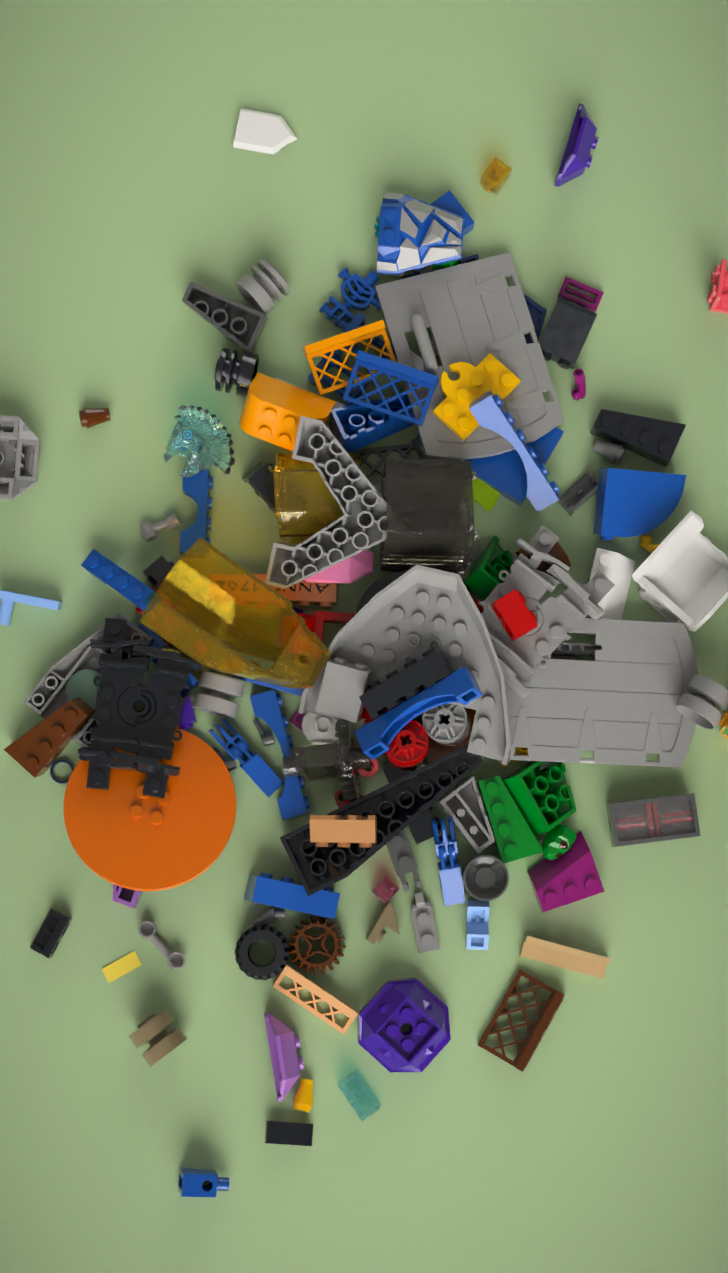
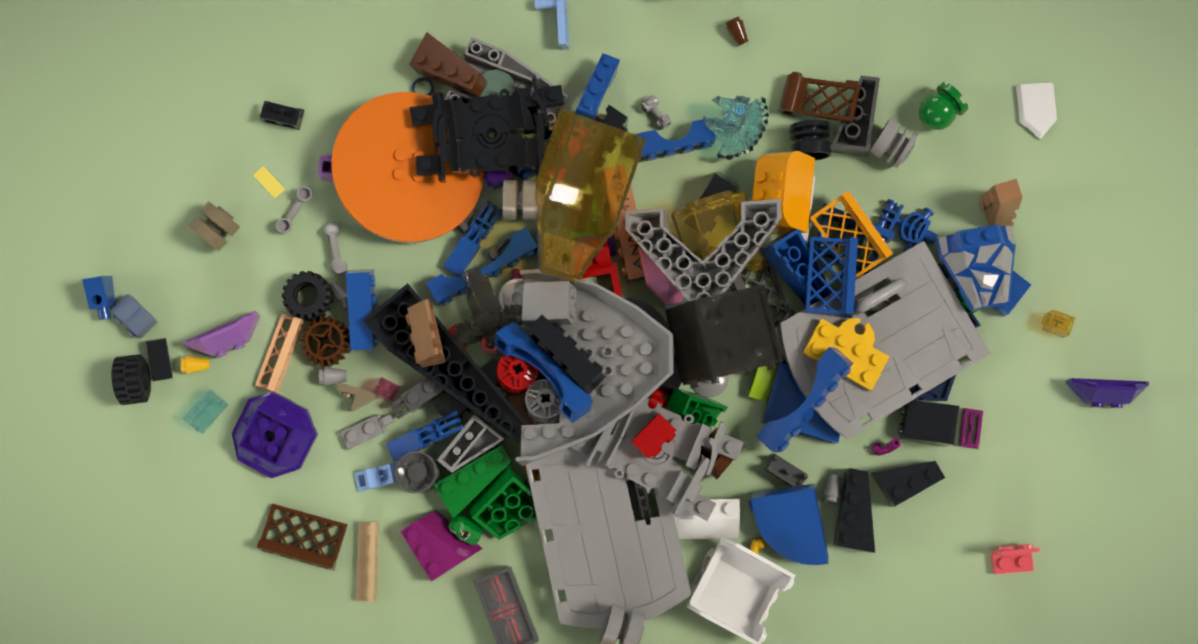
camera: 75 degrees right, 0 degrees up
(181, 375) = (796, 90): none -> reddish brown piece
(196, 909) = (338, 265): none -> light grey bar
(233, 1151) = (133, 316): none -> sand blue brick
(238, 229) = (940, 108): none -> green tile
(305, 1168) = (131, 379): none -> black tyre
(356, 947) = (332, 375): none -> light grey cone
(358, 196) = (1001, 202): none -> medium nougat wedge
(620, 372) = (907, 481): none -> black wedge

